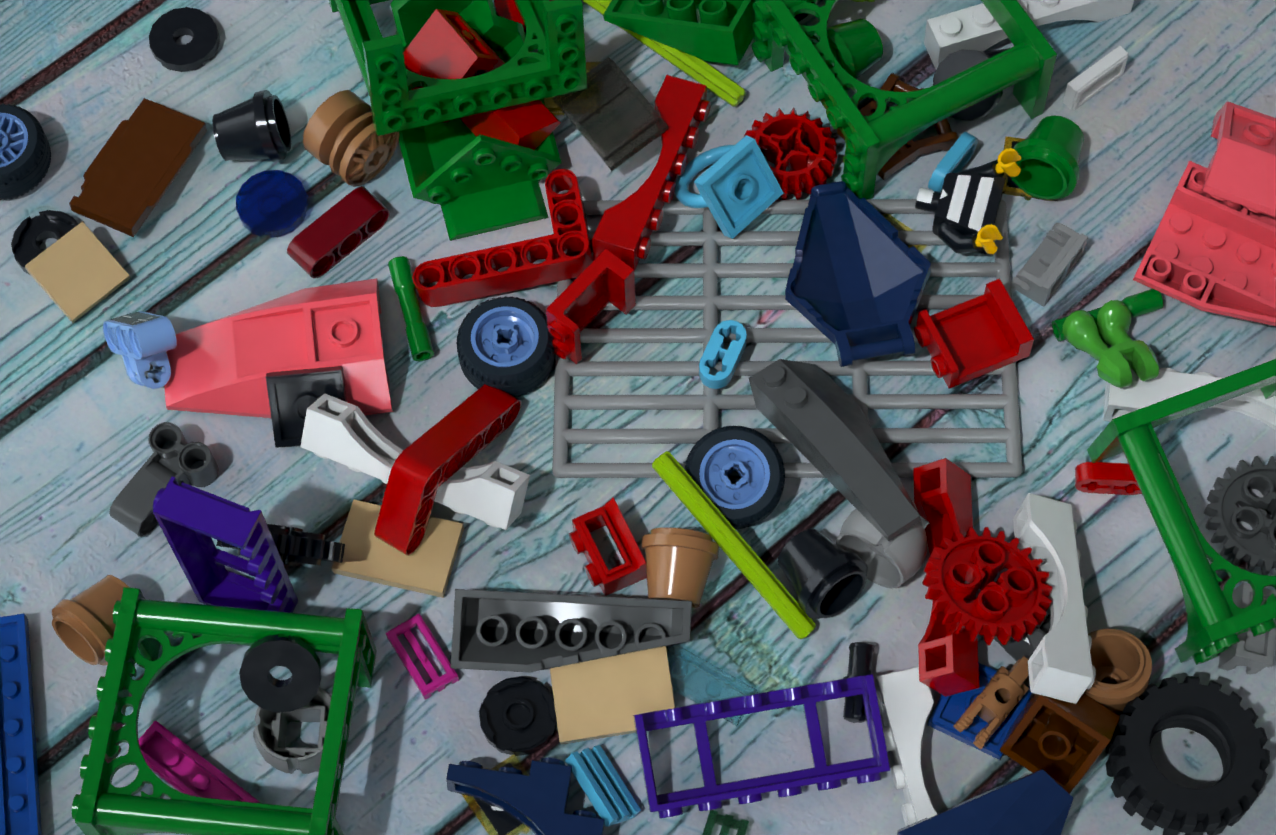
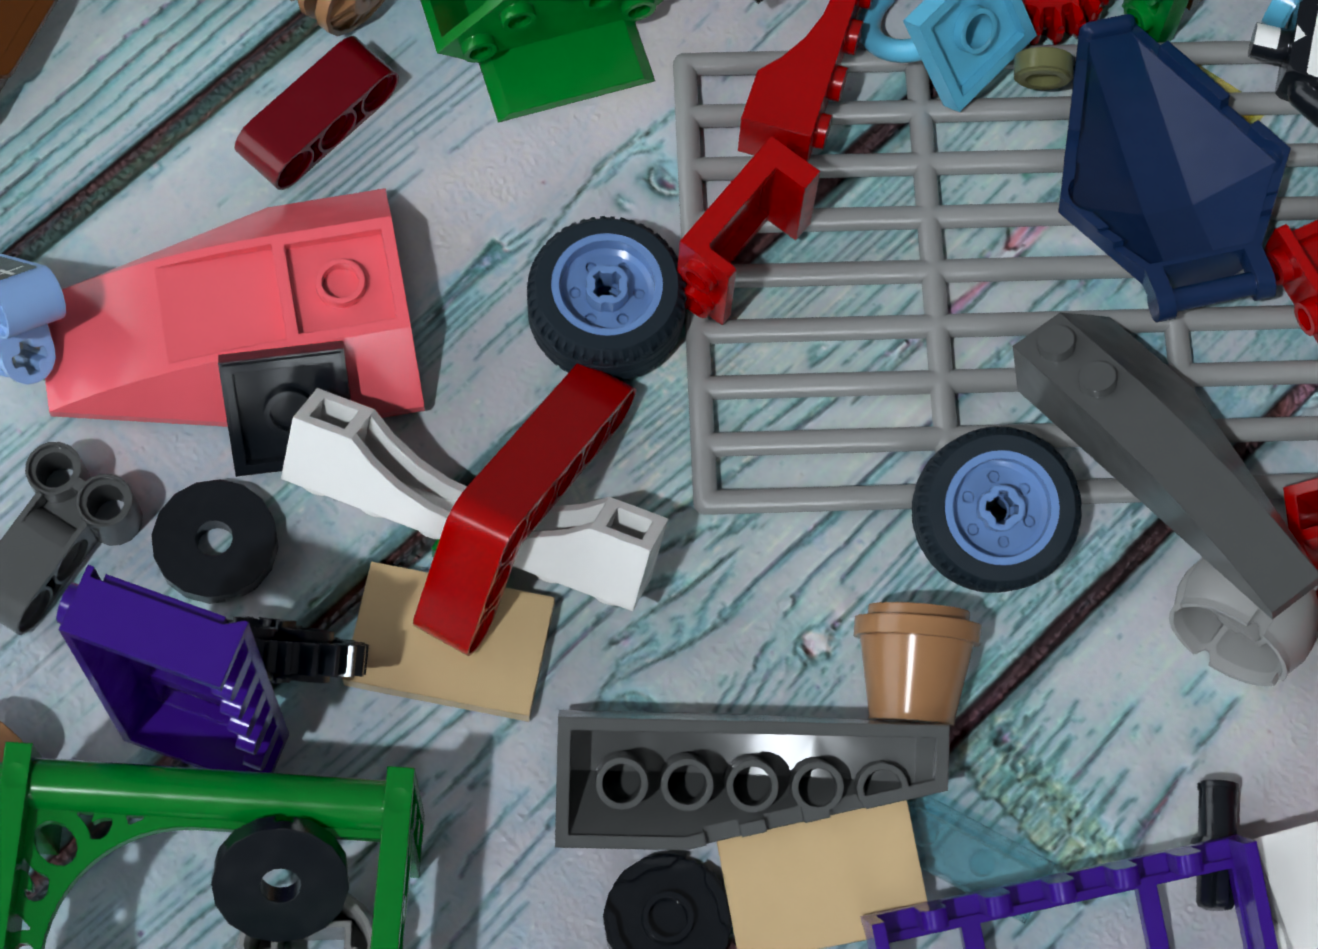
camera: 10 degrees left, 5 degrees up
(262, 465) = (208, 507): none -> black tile
(272, 203) = (203, 66): clear blue tile -> none
(416, 329) = (454, 270): green piece -> none
(438, 683) = (531, 867): dark pink tile -> none
(516, 255) = (615, 146): red beam -> none
(621, 576) = (780, 667): red window -> none
(729, 357) = (971, 307): medium azure beam -> none
(733, 545) = (1005, 624): lime axle -> none
(785, 213) = (1043, 68): none -> olive tile
(822, 574) = (1149, 667): black piece -> none

